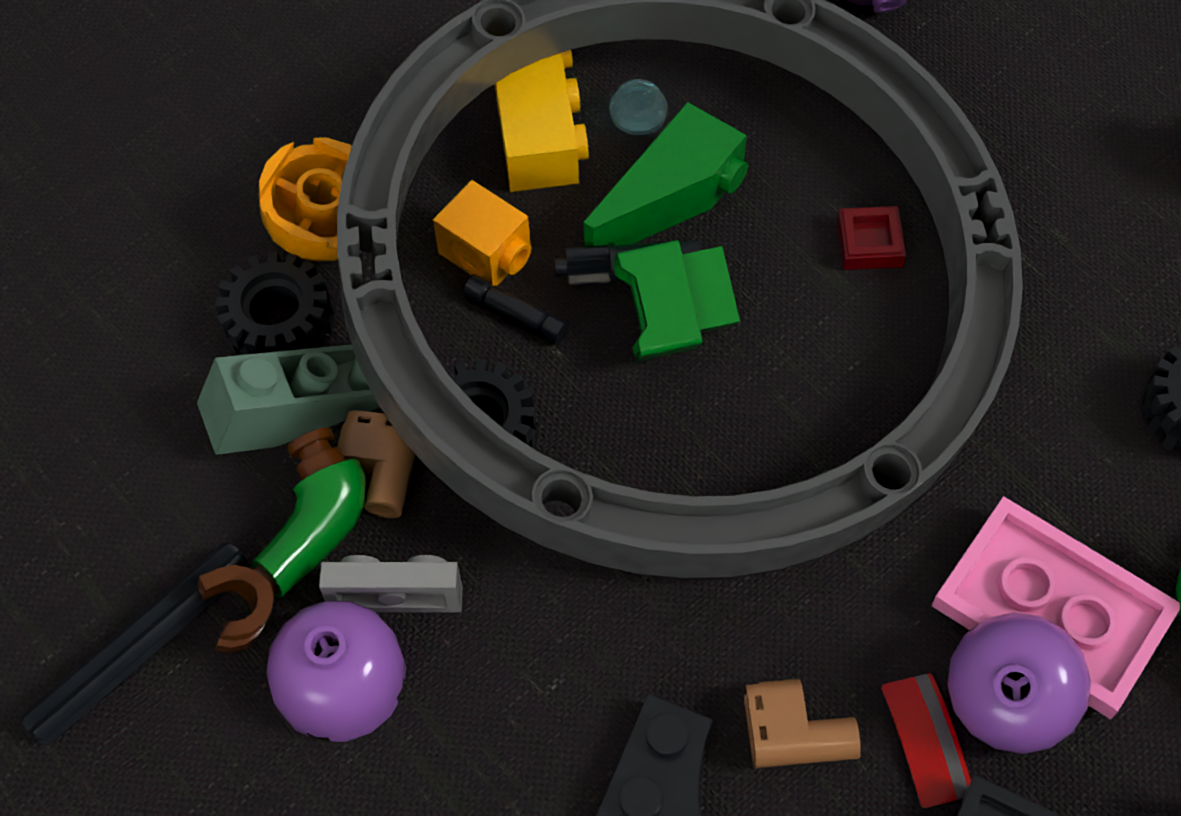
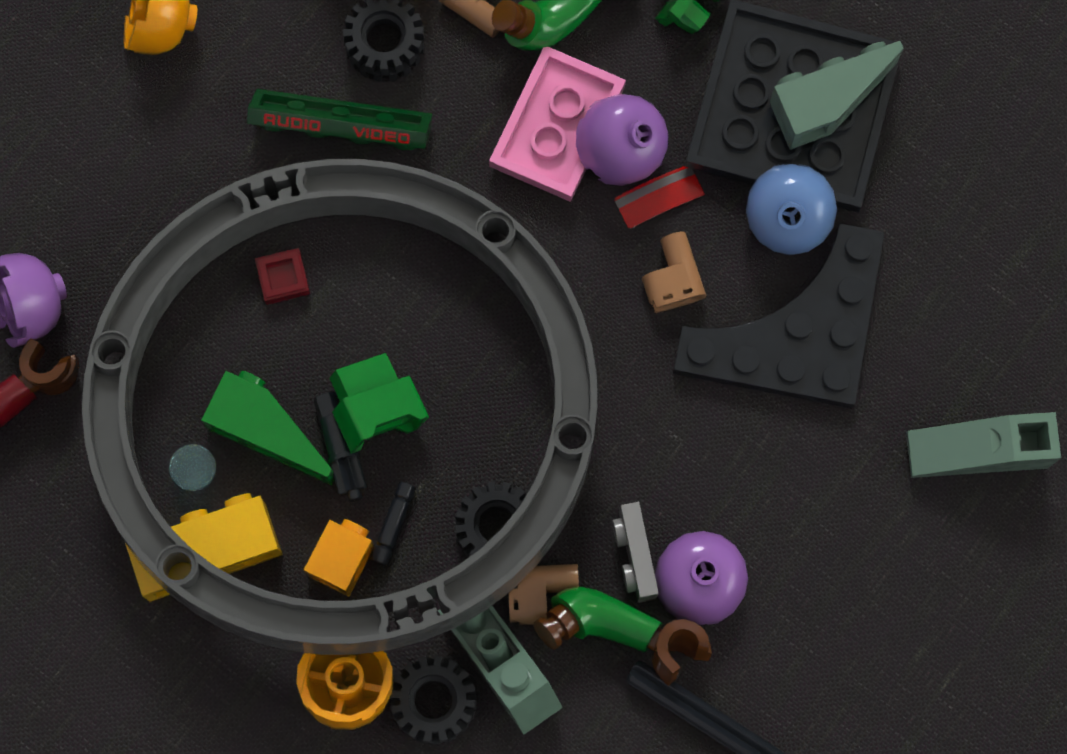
camera: 105 degrees left, 15 degrees up
(1084, 329) = (338, 118): none -> dark green plate

